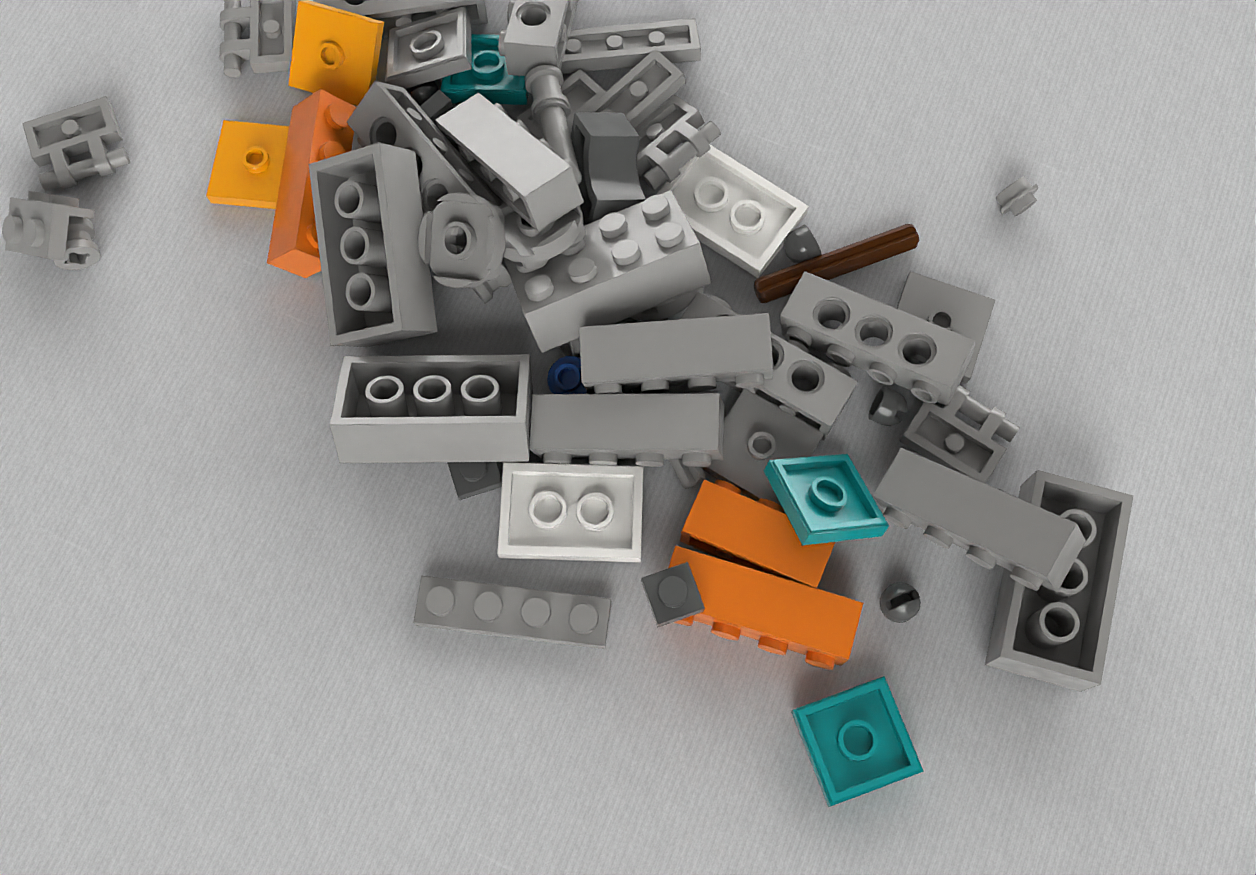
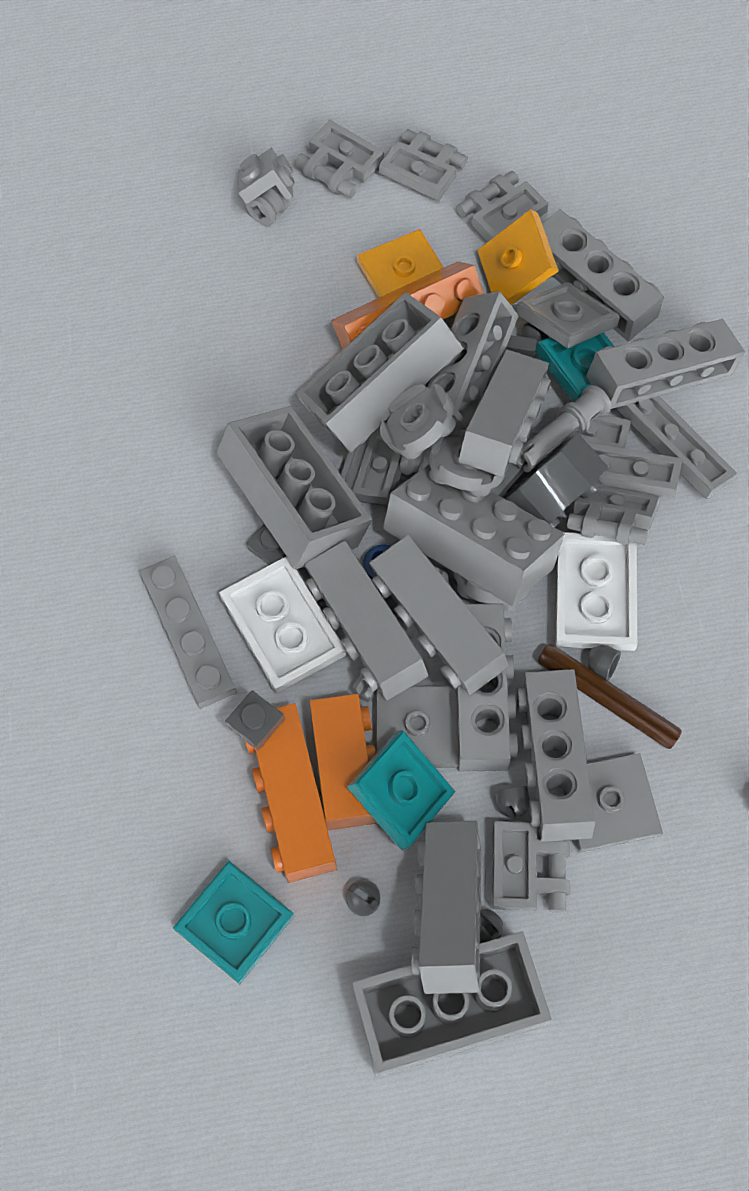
camera: 60 degrees right, 5 degrees down
(152, 79) = (421, 171): none -> light grey plate
(465, 323) = (372, 470): none -> light grey plate

